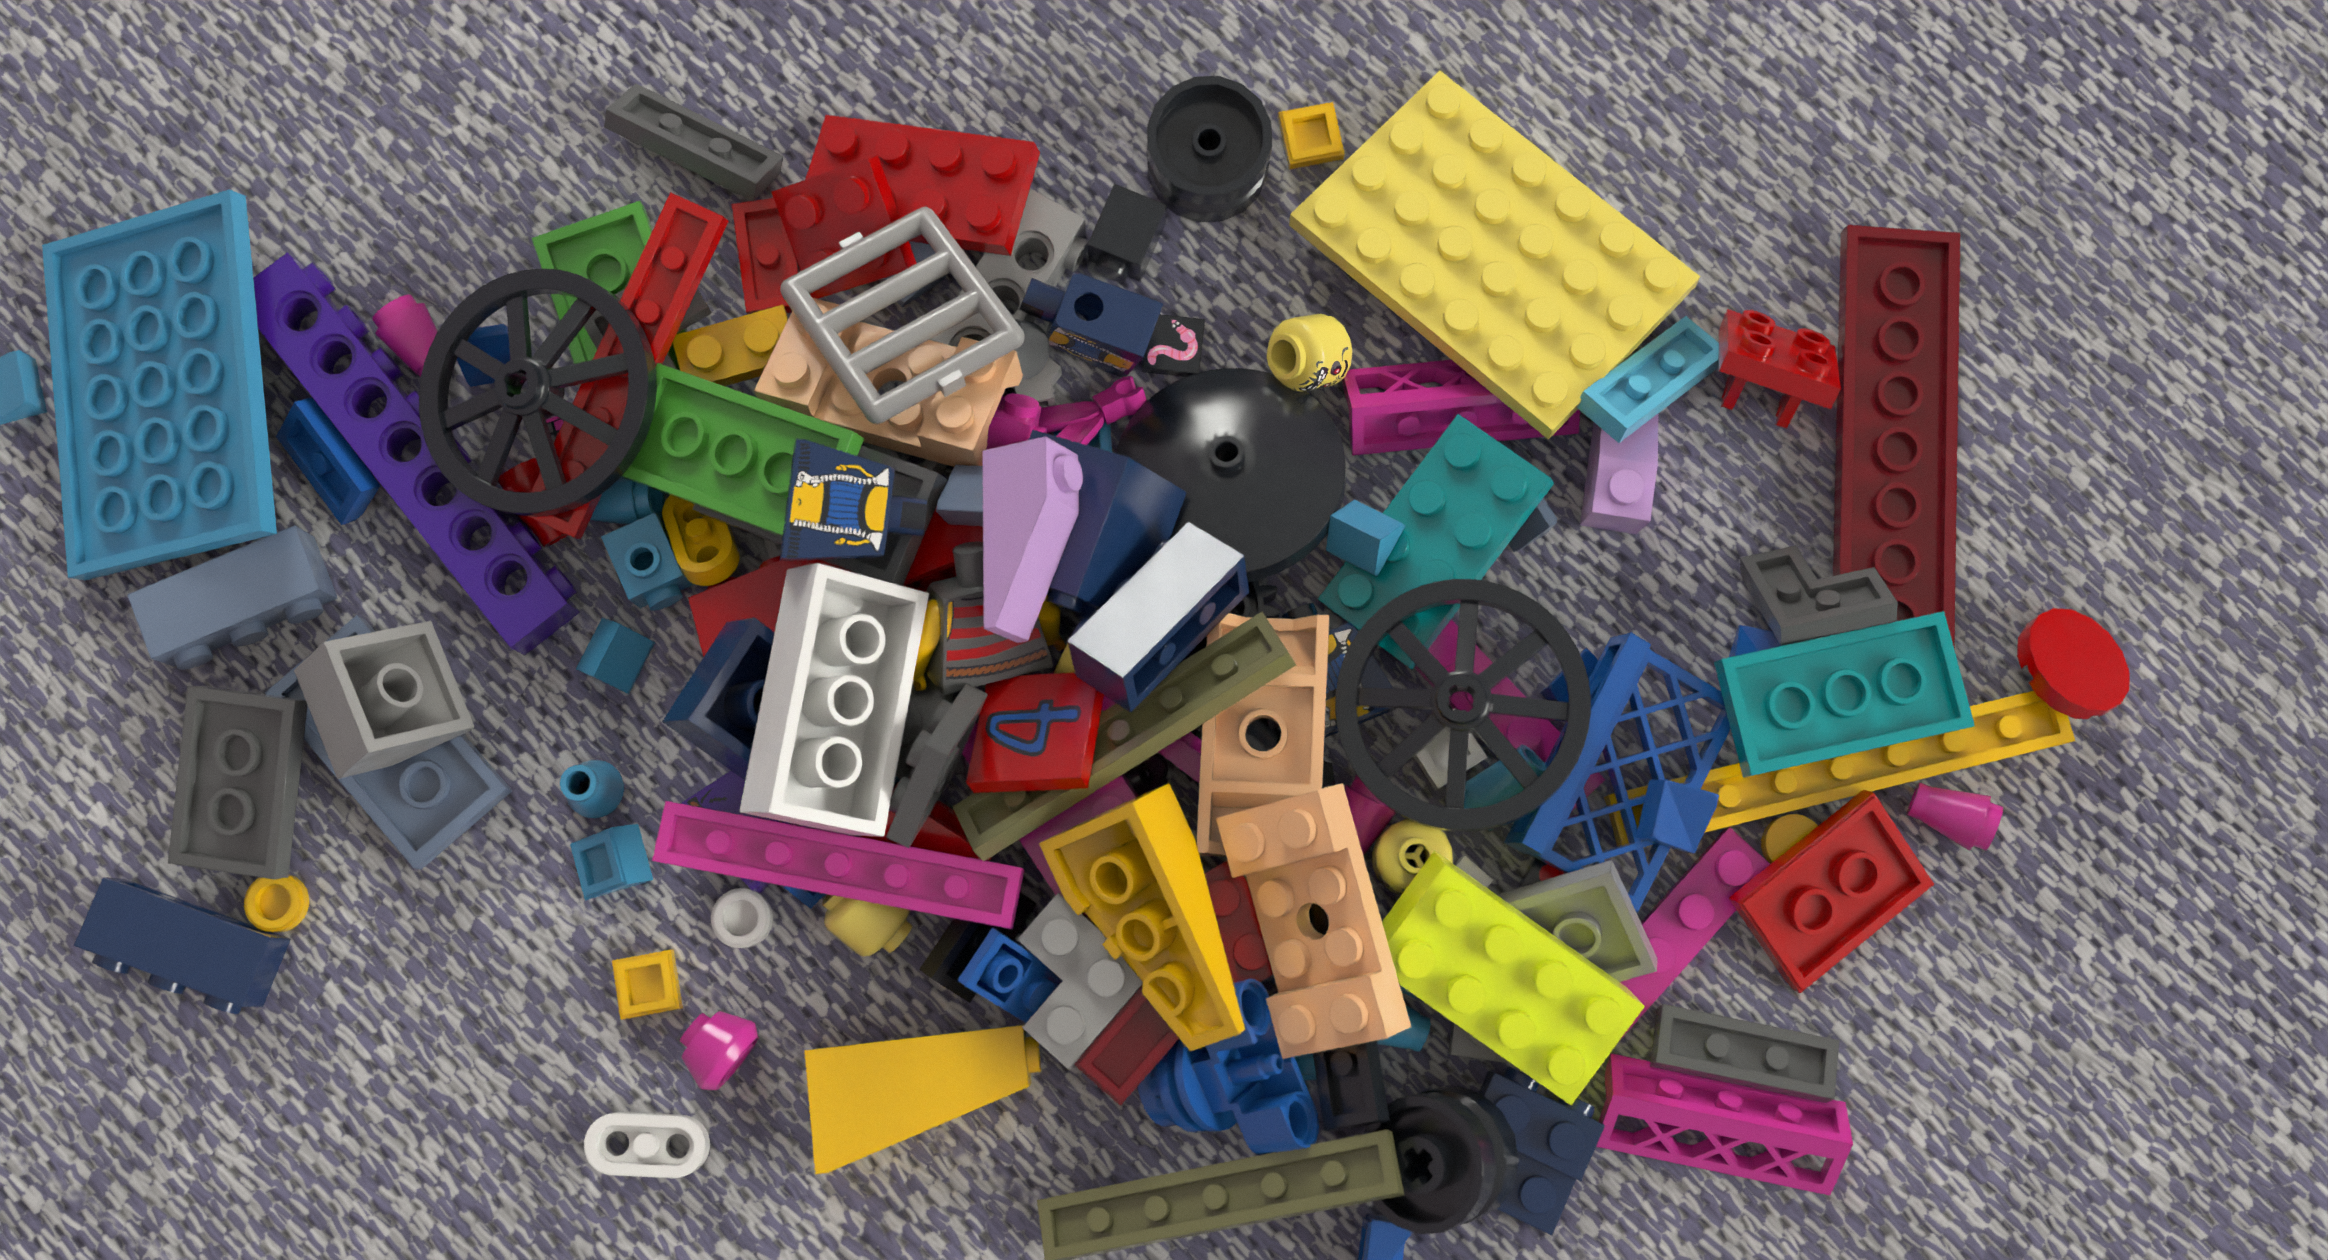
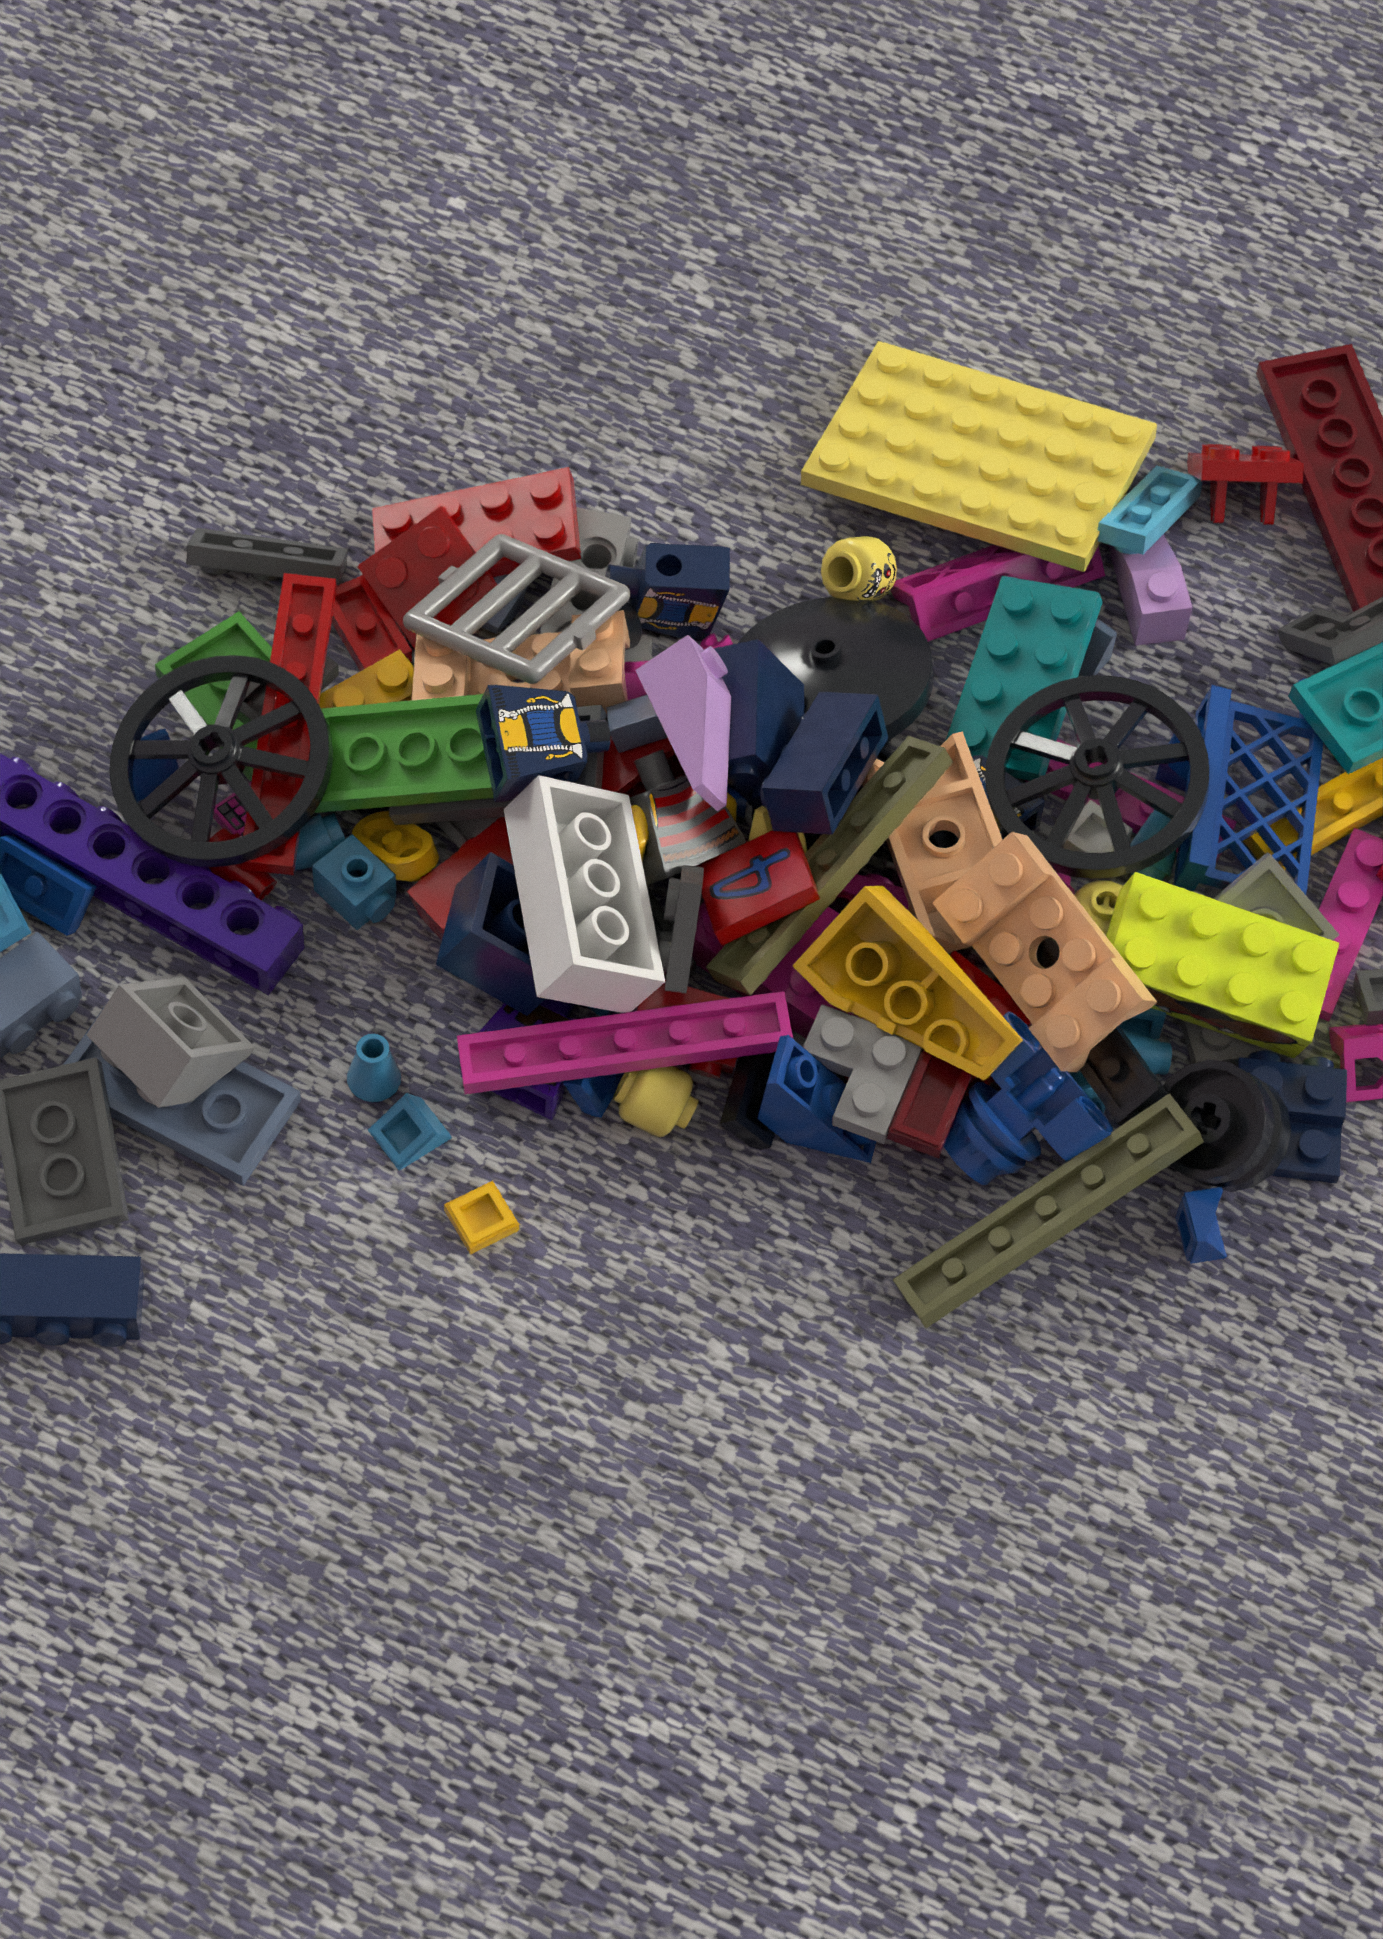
camera: 20 degrees left, 20 degrees down
(276, 903) = (123, 1240): yellow tile -> none
(406, 330) = (75, 766): dark pink cone -> none
(615, 655) = (350, 968): dark azure slope -> none
(648, 1145) = (530, 1333): white plate -> none
(717, 1047) = (567, 1239): dark pink cone -> none
(741, 918) = (544, 1141): white tile -> none
(898, 1088) = (746, 1219): yellow slope -> none
(1126, 234) = (668, 515): black brick -> none
(1175, 346) = (744, 604): tile -> none
(1183, 130) = (712, 442): black wheel -> none
(1311, 135) = (790, 418): yellow tile -> none
(1362, 536) = (961, 688): dark azure slope -> none
(1675, 815) = (1305, 812): blue slope -> none

